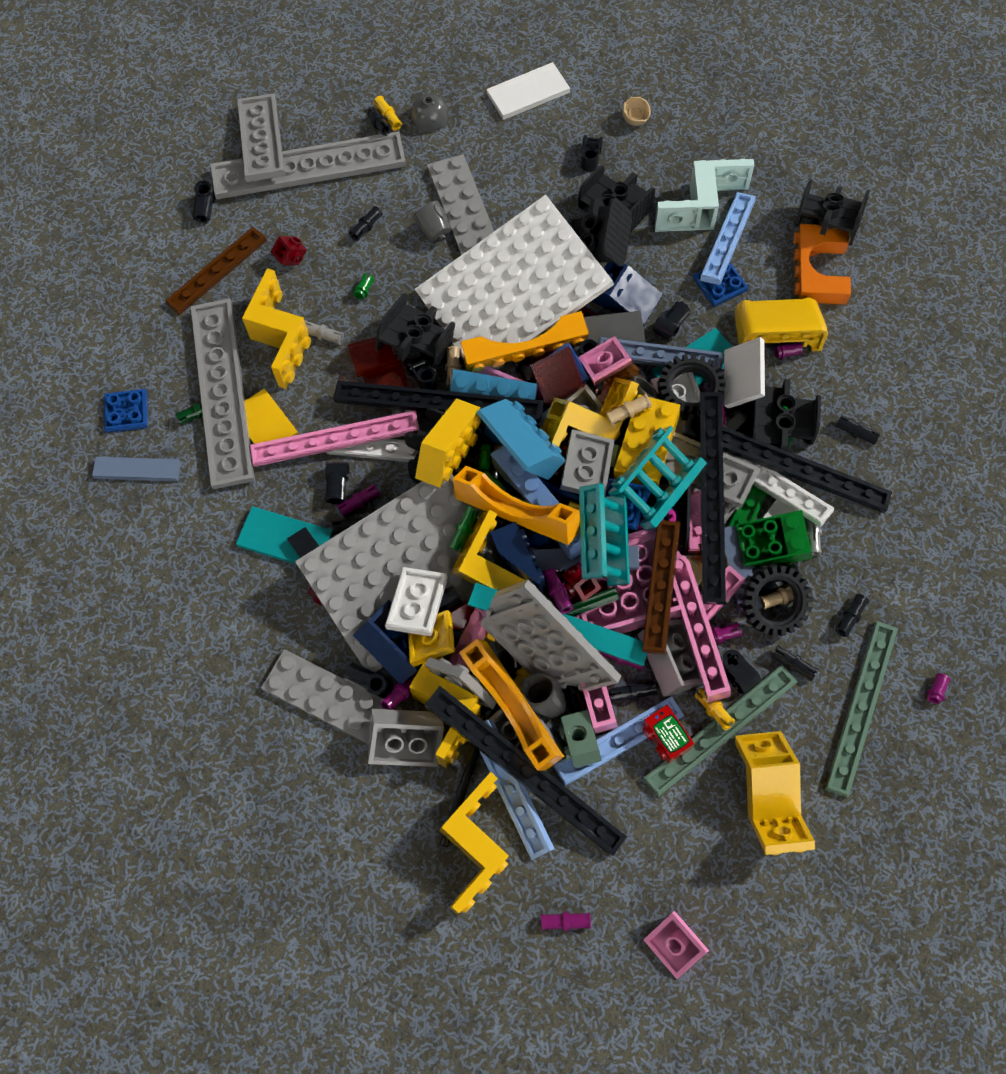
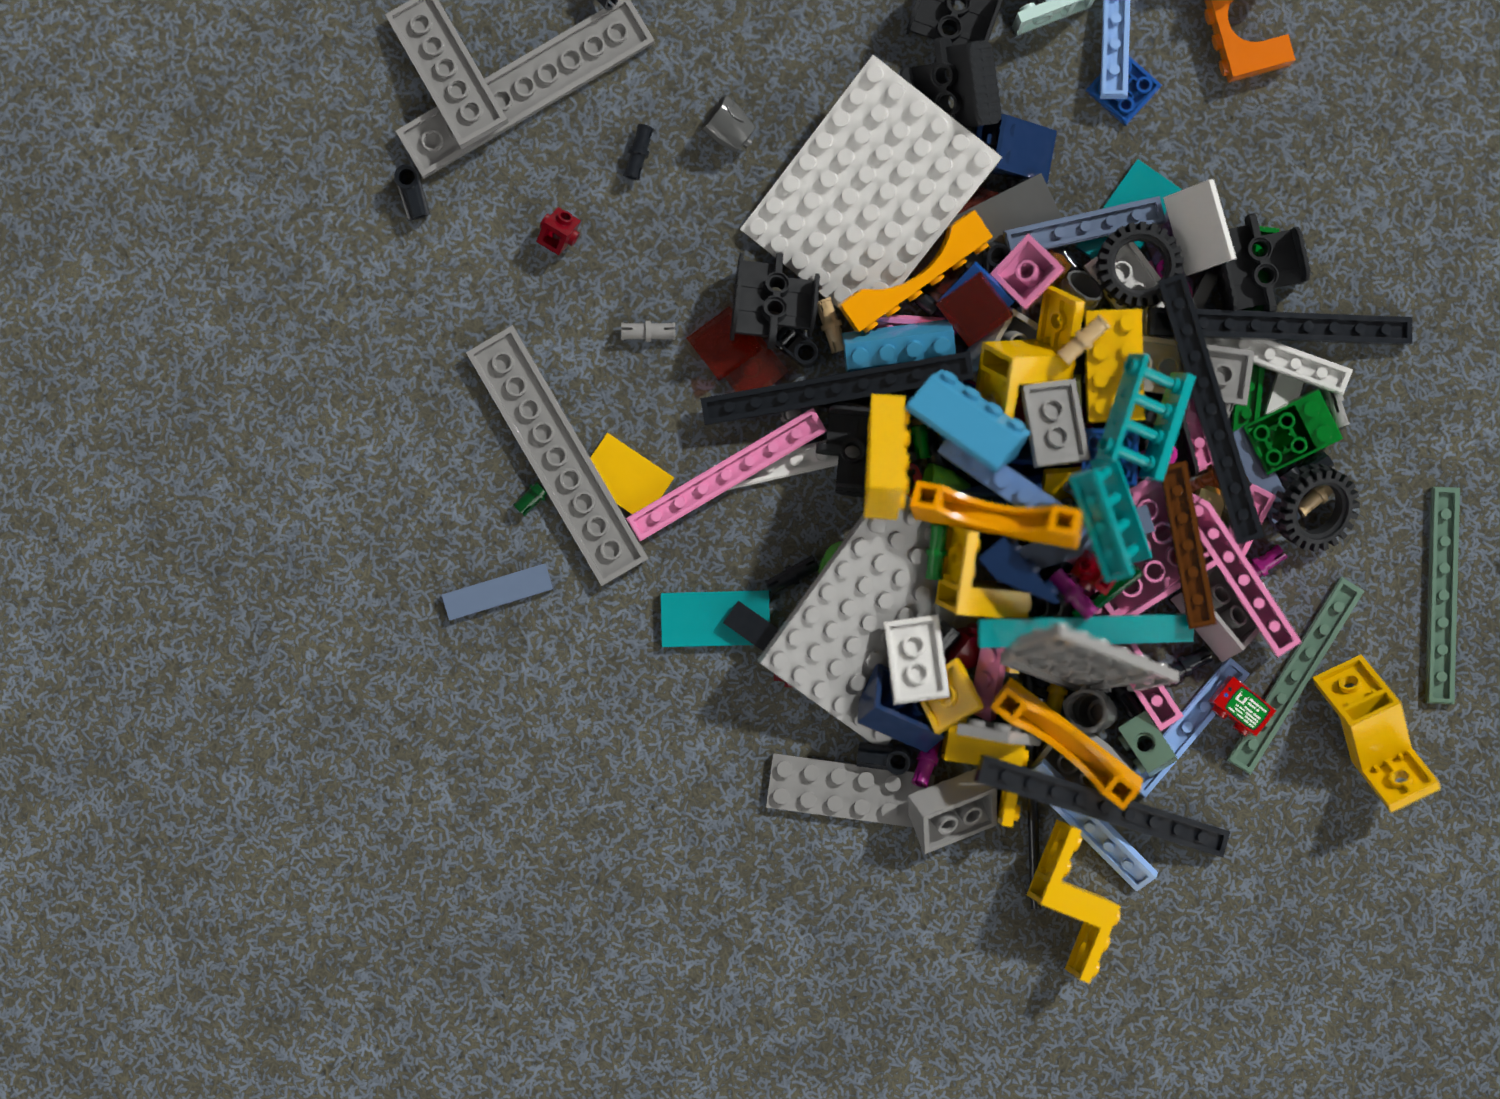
camera: 20 degrees left, 20 degrees up
(125, 410) = (447, 520): blue tile -> none
(215, 271) = (471, 285): reddish brown tile -> none
(276, 328) = (594, 350): yellow bracket -> none
(336, 480) = (747, 522): black piece -> none
(358, 500) = (784, 542): magenta pin -> none
(363, 287) = (673, 247): green pin -> none
(460, 201) = (753, 80): light grey plate -> none
(565, 921) = (1195, 942): magenta pin -> none
(670, 323) = (1079, 173): black piece -> none
(676, 945) = (1317, 927): bright pink slope -> none
(715, 710) = (1287, 660): yellow pin -> none
(739, 673) = (1298, 603): black piece -> none
(781, 322) = (1217, 129): yellow windscreen -> none
(782, 351) = (1231, 163): magenta pin -> none
(794, 663) = (1355, 570): black pin -> none
(852, 615) = (1404, 490): black pin -> none
(857, 430) = (1350, 245): black pin -> none

